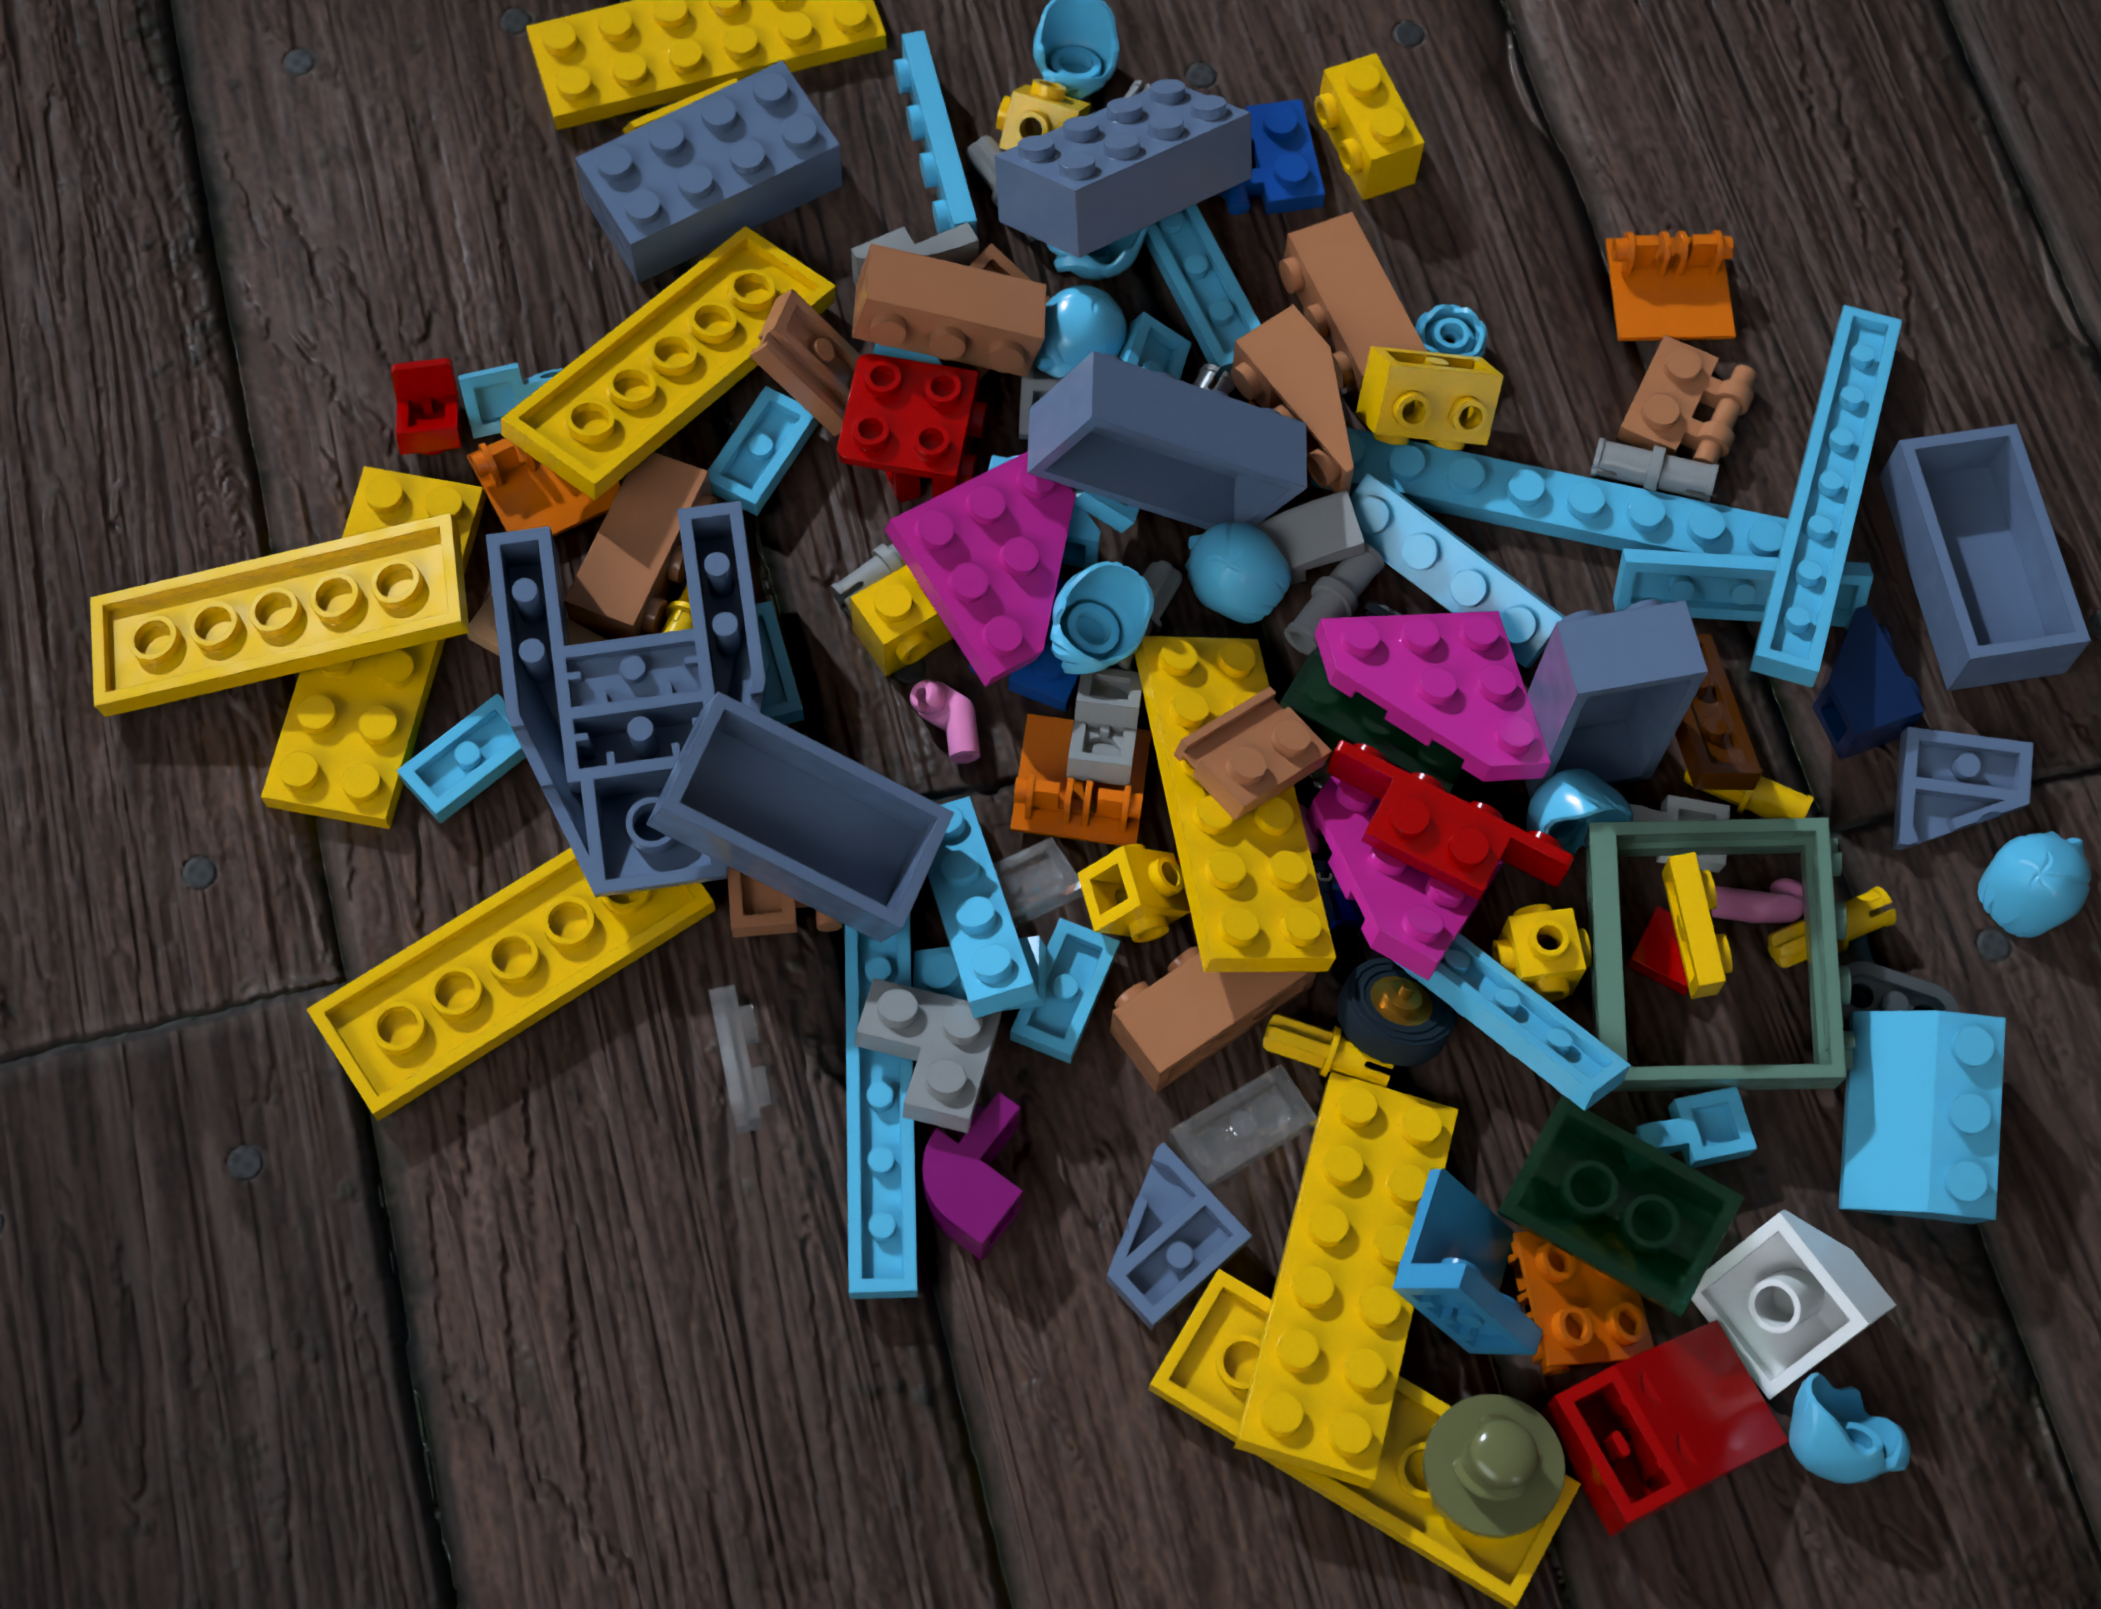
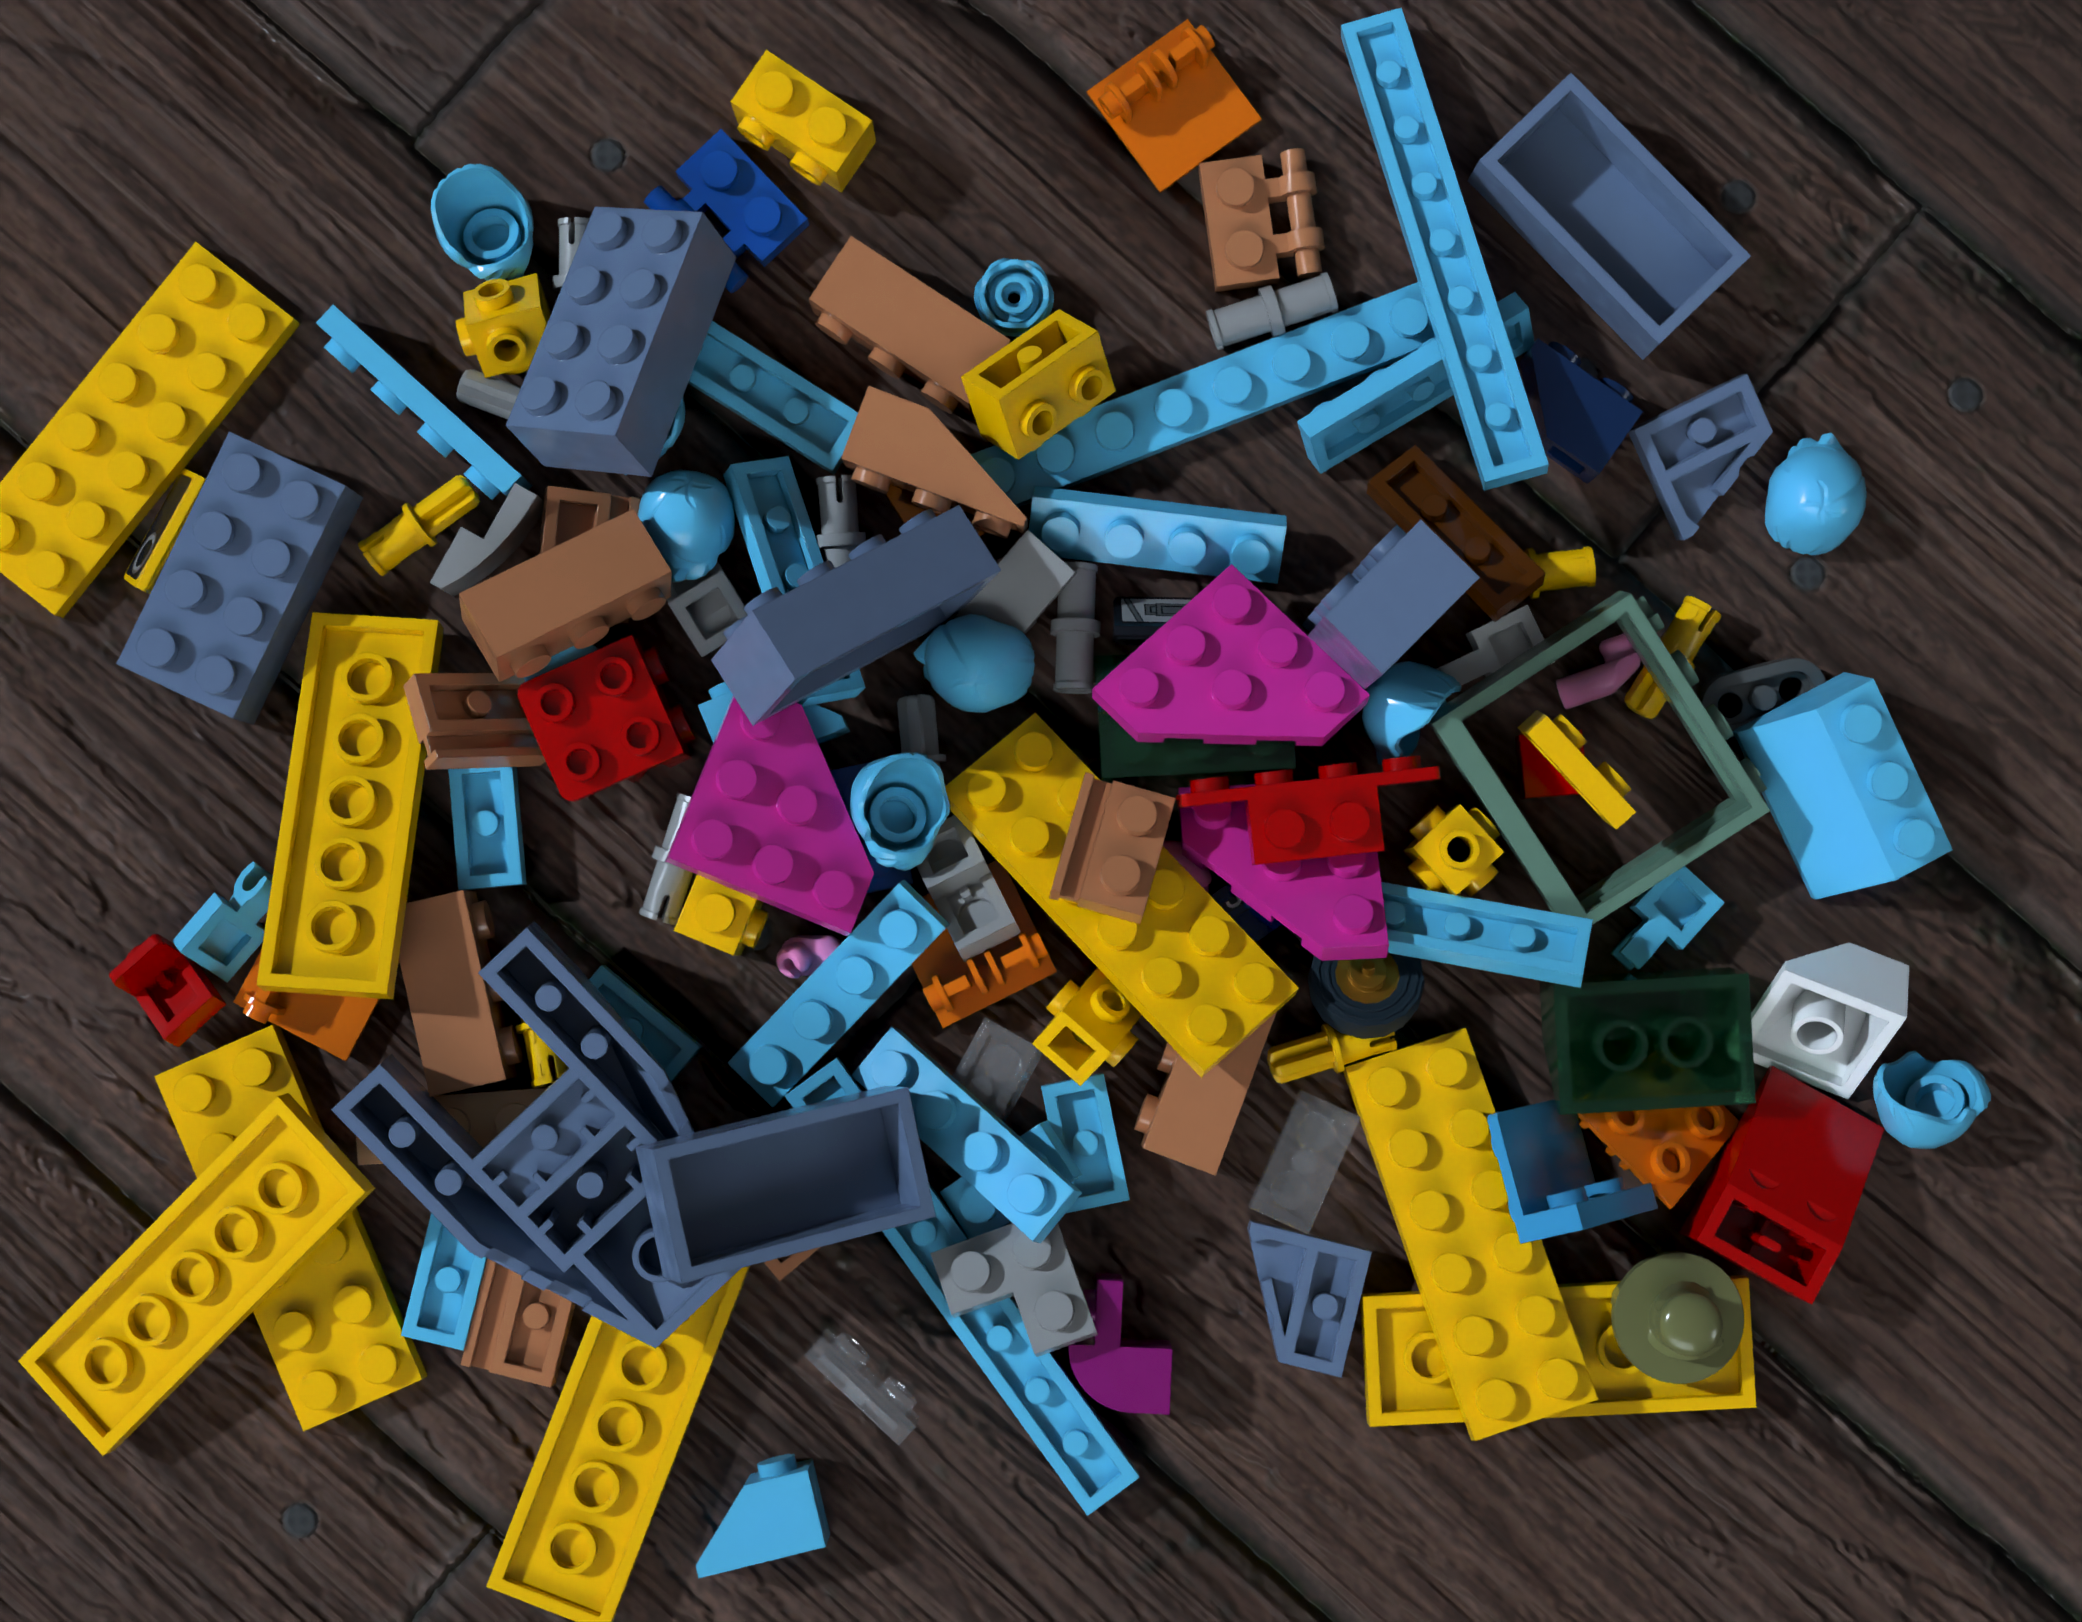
camera: 35 degrees left, 20 degrees up
(498, 826) = (517, 1328): none -> nougat plate
(575, 1112) = (770, 1518): none -> medium azure slope
(871, 219) = (419, 524): none -> yellow axle
(962, 733) = (838, 993): none -> medium azure plate

